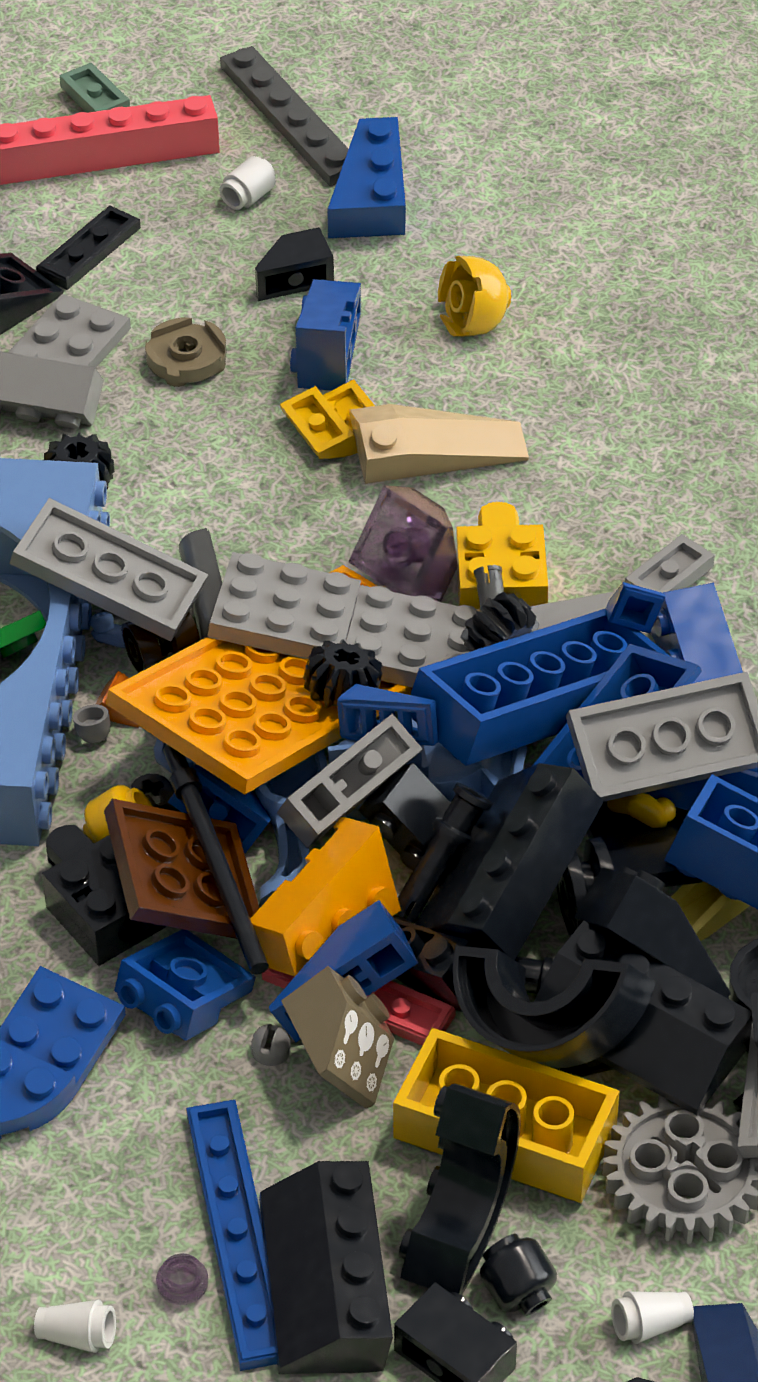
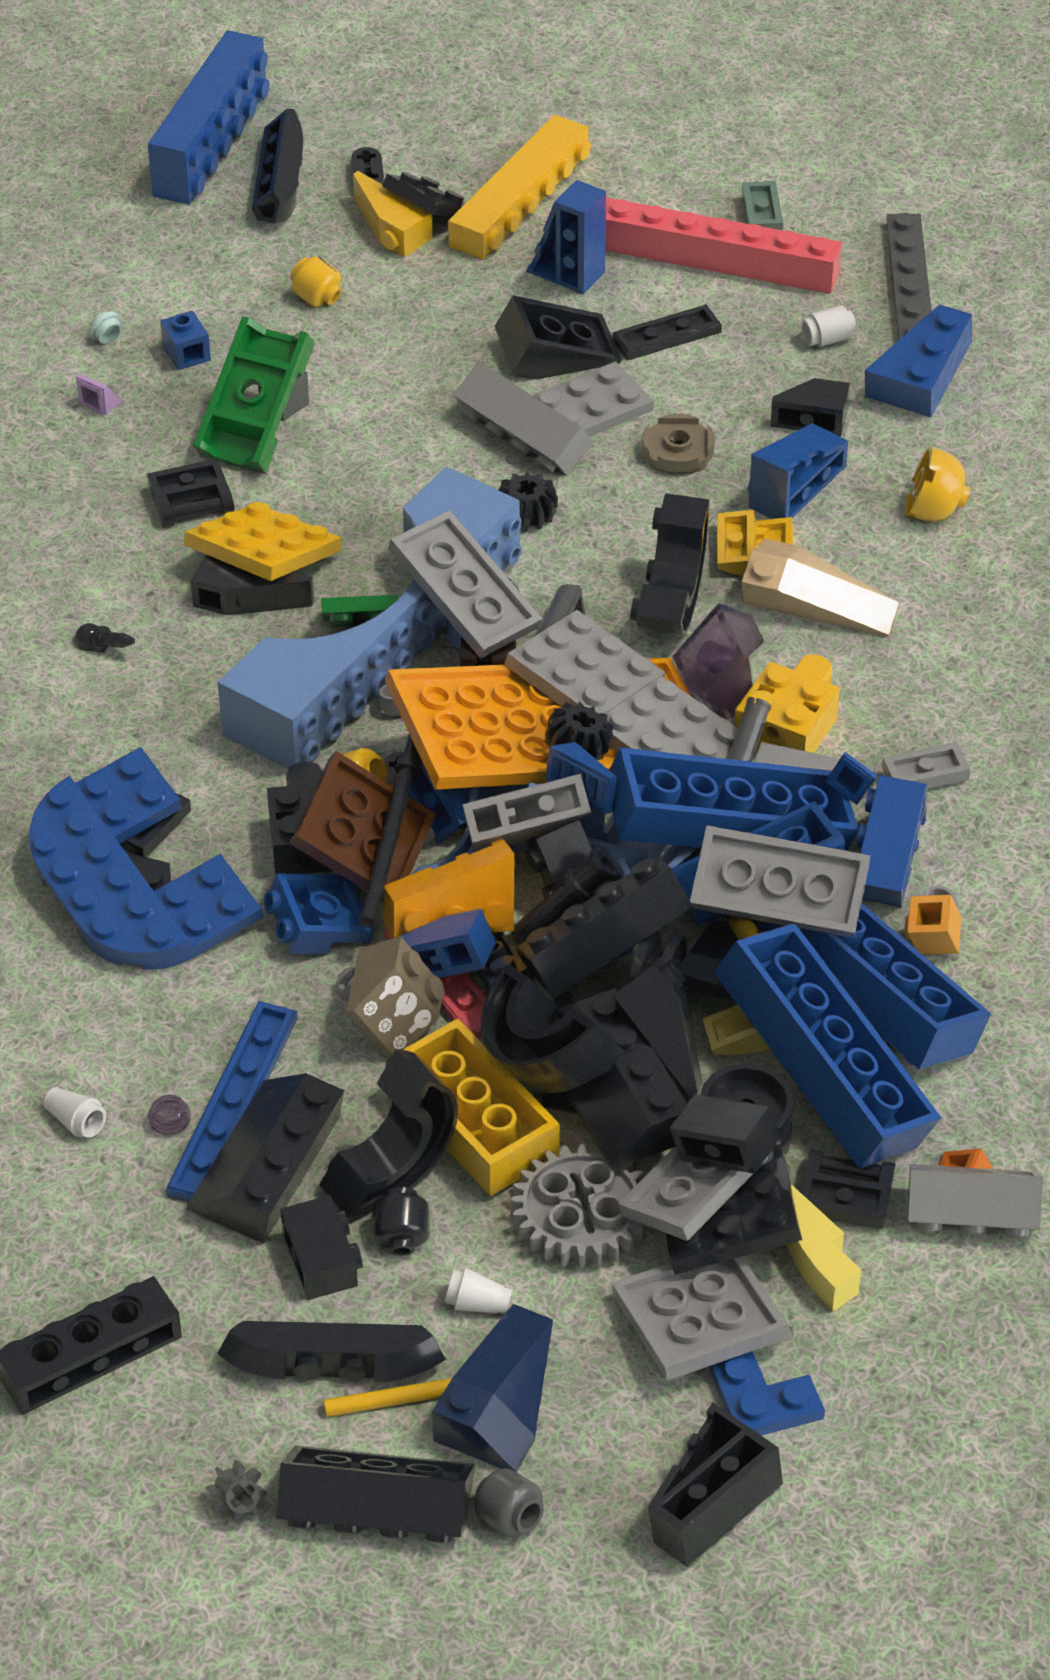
camera: 30 degrees right, 0 degrees up
(287, 473) = (677, 568): none -> black brick
(498, 621) = (727, 742): black gear -> none

